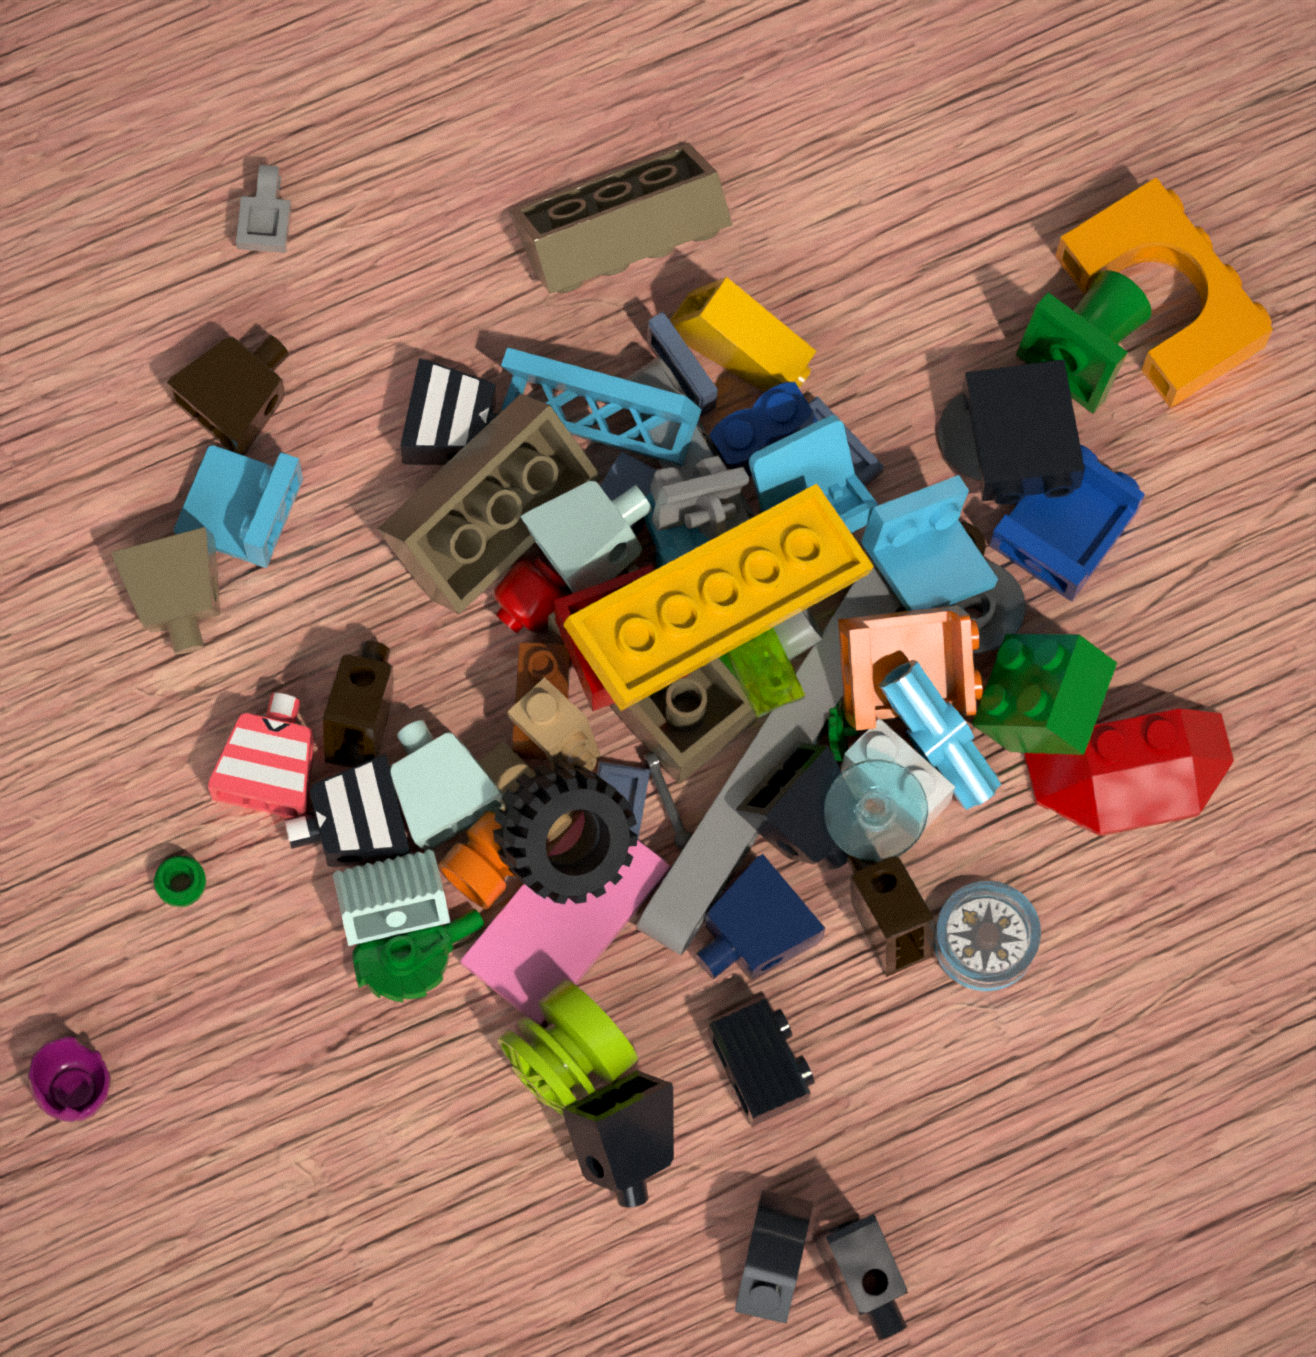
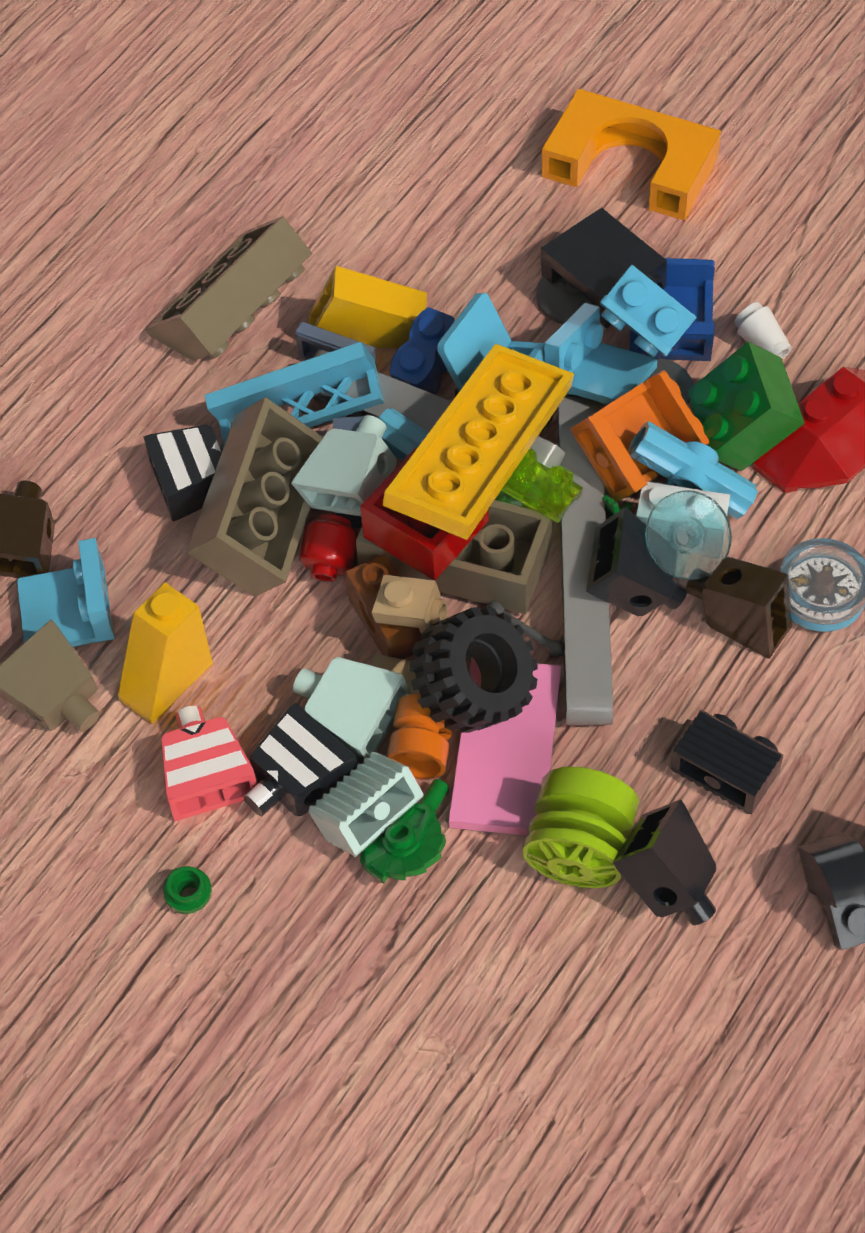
camera: 25 degrees left, 15 degrees down
(68, 1080) = (191, 1088): magenta hair -> none
(291, 626) = (163, 653): none -> yellow slope
(358, 706) = (248, 668): dark brown torso -> none
(698, 502) = (415, 399): light grey hips -> none
(758, 924) = (655, 668): dark blue torso -> none
(1006, 529) = (647, 312): none -> medium azure bracket
(1087, 335) = (603, 181): green plant -> none
(1143, 606) = (762, 329): none -> white cone

